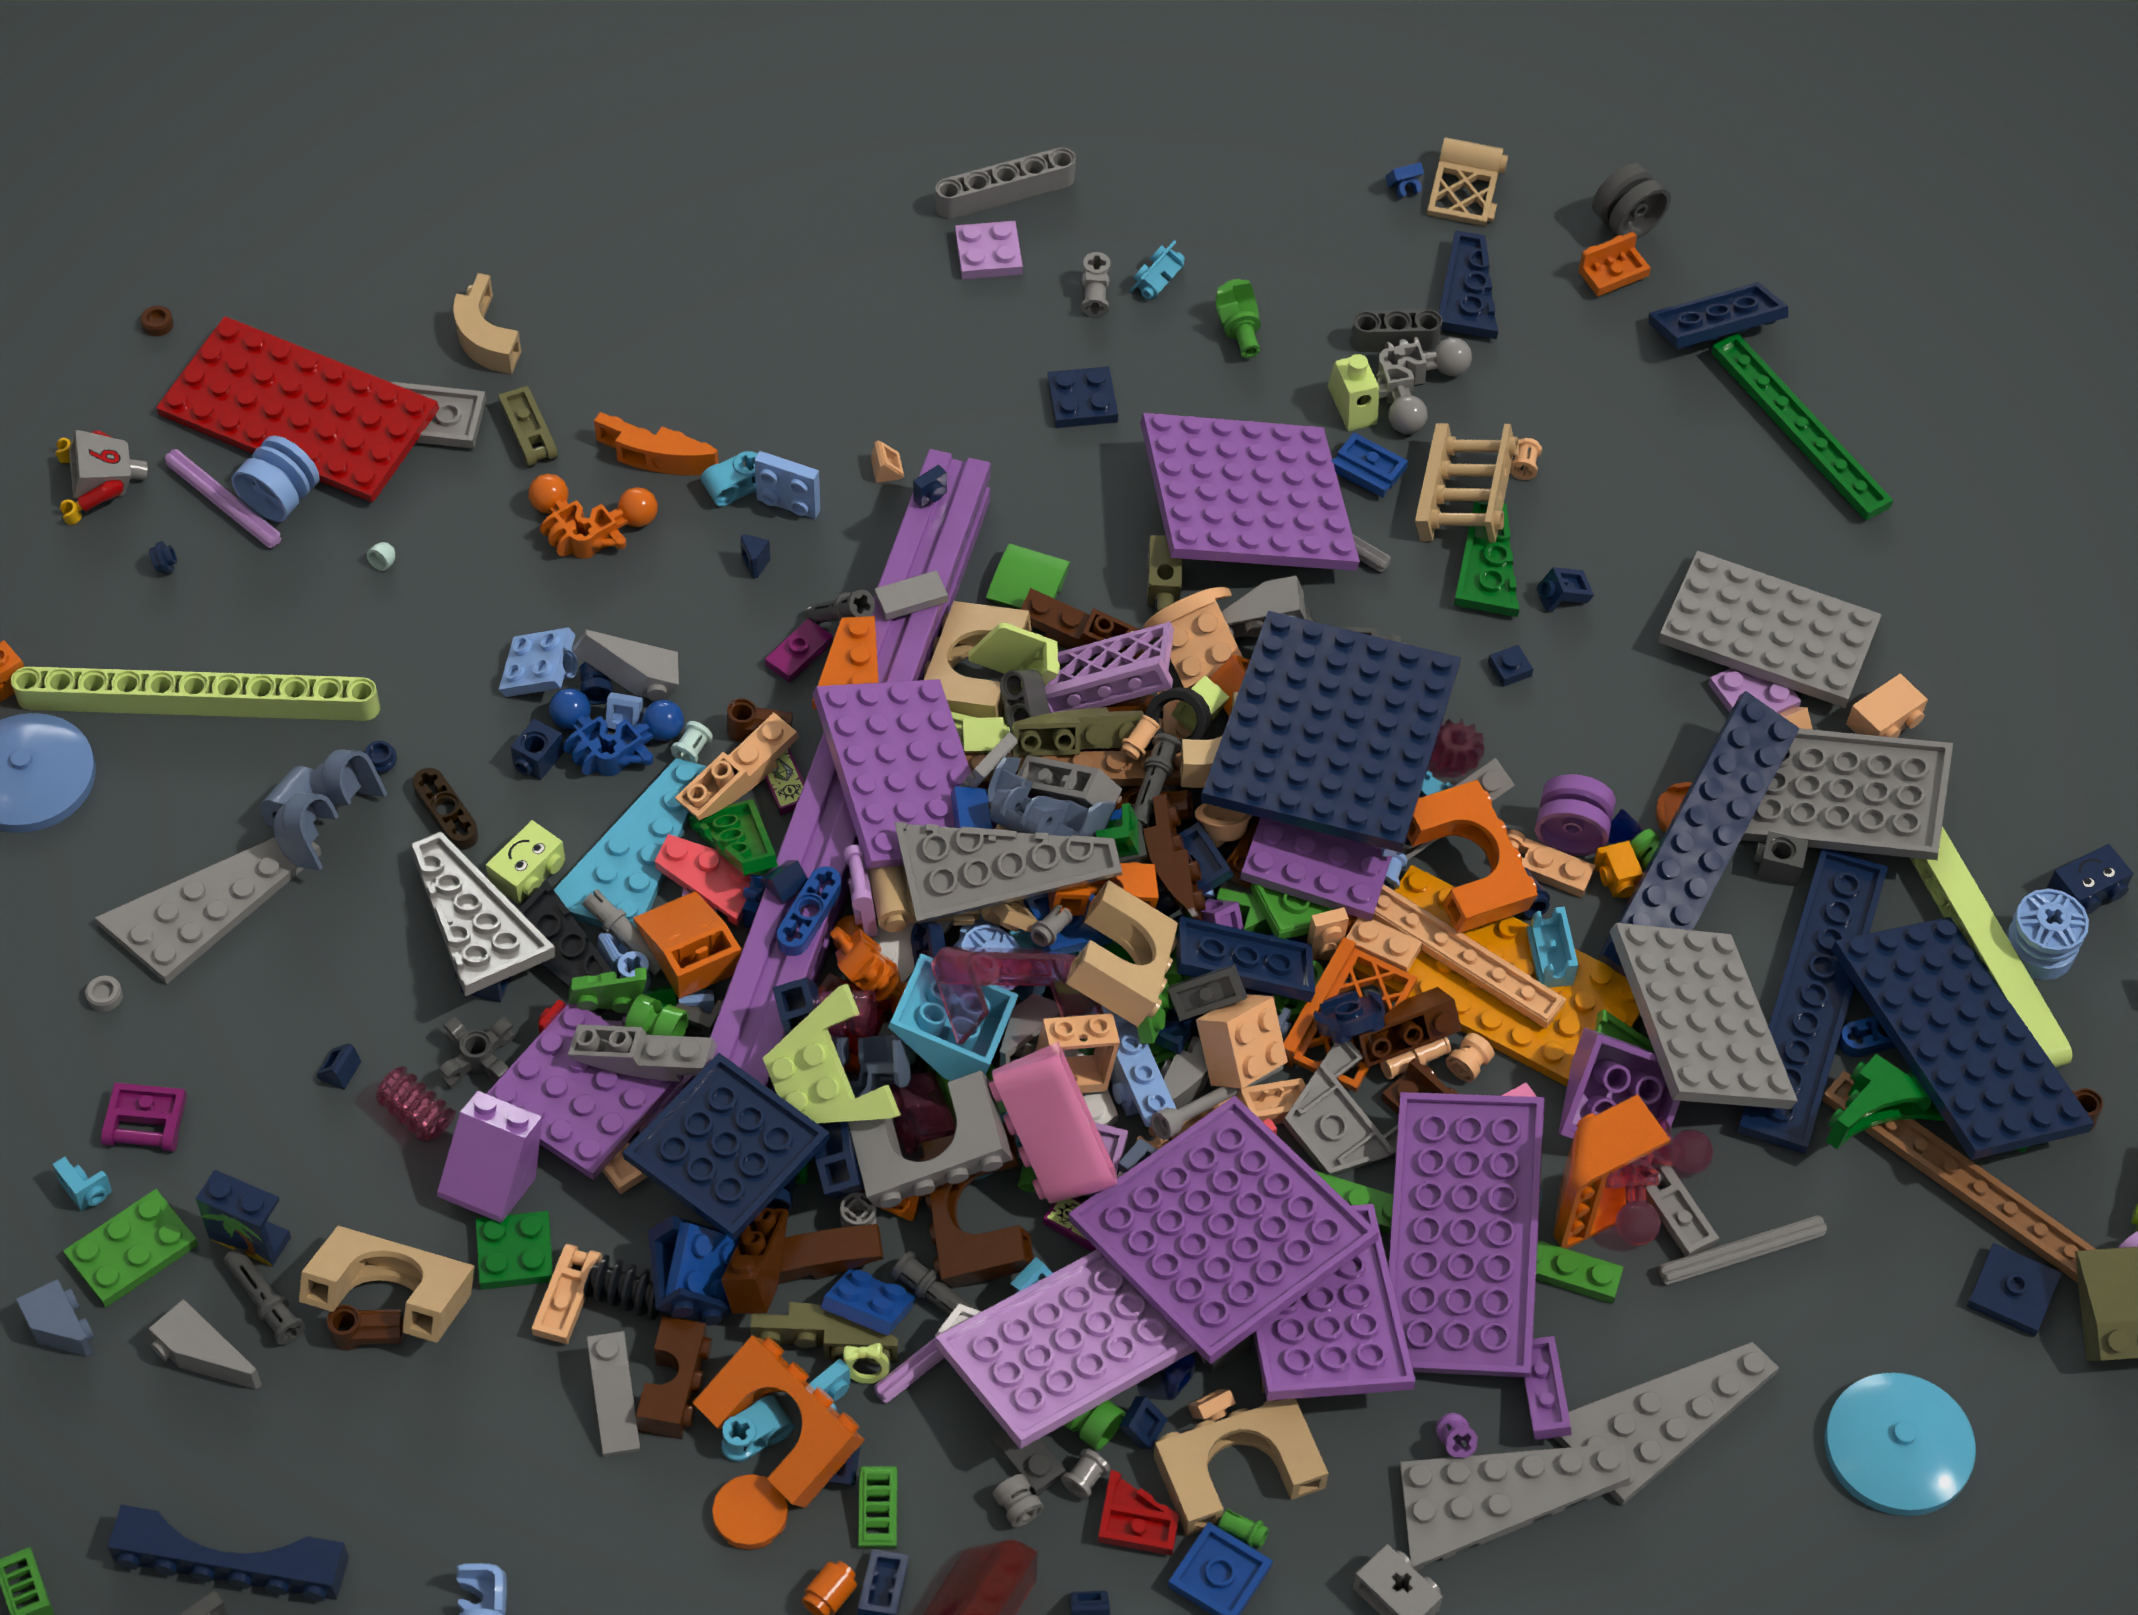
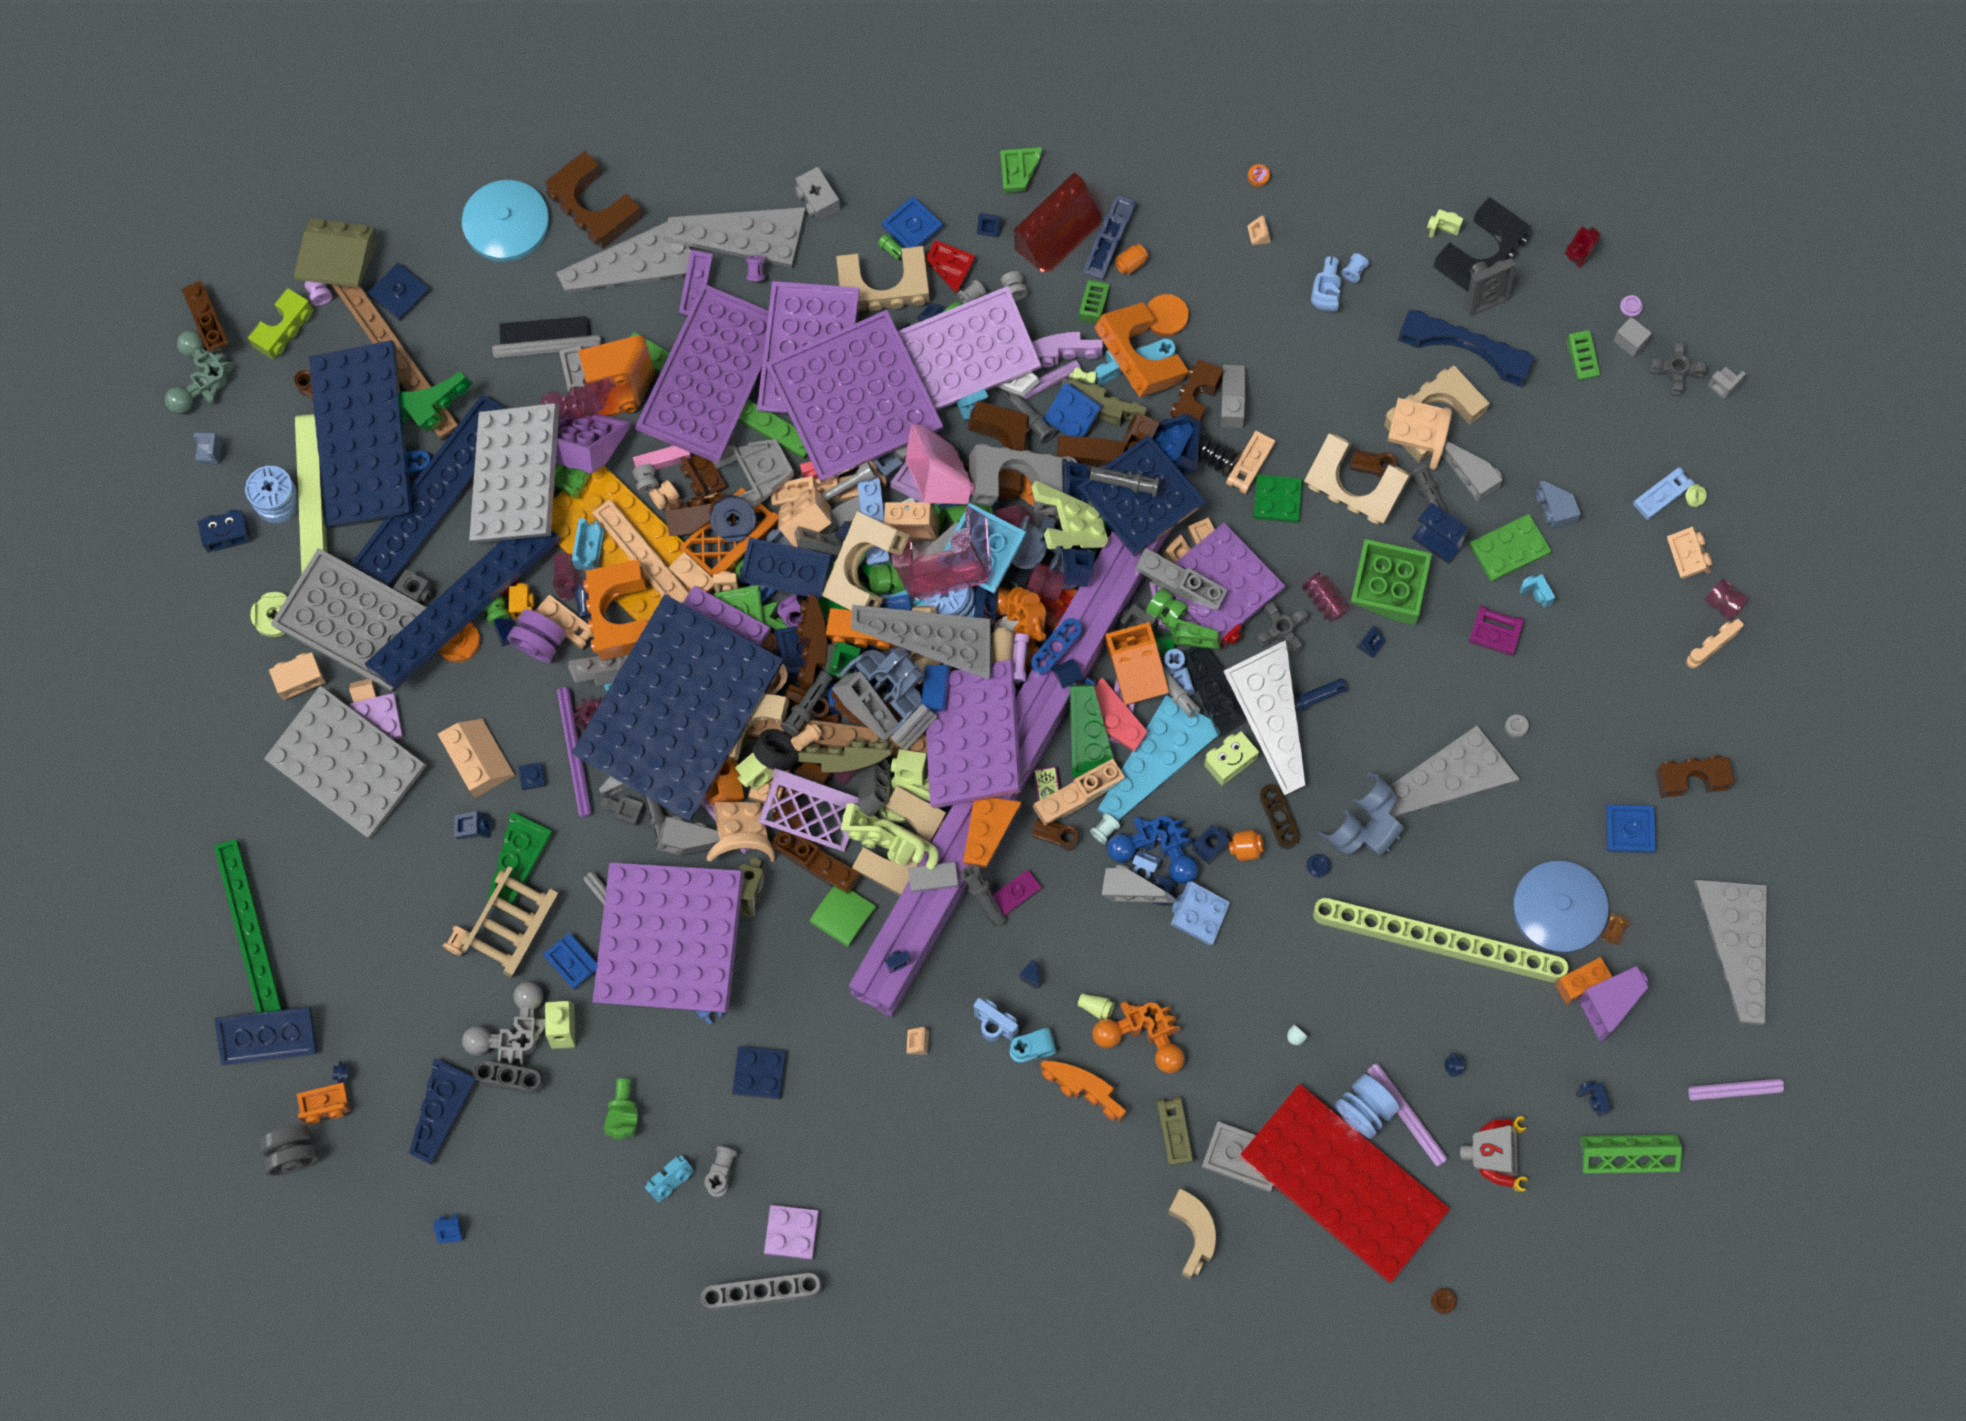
camera: 160 degrees left, 15 degrees up
(252, 1476) = (1450, 388): none -> tan arch
(290, 1384) = (1420, 427): none -> light nougat piece
(316, 1142) = (1391, 580): none -> bright green slope
(430, 961) = (1319, 694): none -> dark blue pin
(484, 757) = (1247, 845): none -> orange head
(491, 1157) = (1286, 537): medium lavender slope -> none
(658, 538) = (1098, 1006): none -> yellowish green cone
(735, 1143) = (1135, 482): none -> dark grey pin
(902, 1417) = (1067, 346): none -> lavender slope
(959, 641) = (906, 843): none -> yellowish green piece
(1046, 931) = (906, 602): light grey pin -> none
(1212, 1405) = (893, 310): light nougat plate -> none
(1469, 163) = (391, 1234): tan piece -> none
(1470, 711) = (576, 764): none -> medium lavender axle
(1505, 1072) = (645, 477): none -> light grey wheel
(1581, 927) = (564, 576): none -> clear pink piece
(1597, 667) = (476, 756): none -> light nougat slope
(1607, 300) = (340, 1072): none -> dark blue plate
(1743, 1457) = (601, 225): none -> reddish brown arch
(1757, 1274) = (543, 329): none -> black tile
(1978, 799) = (261, 611): none -> yellowish green plate

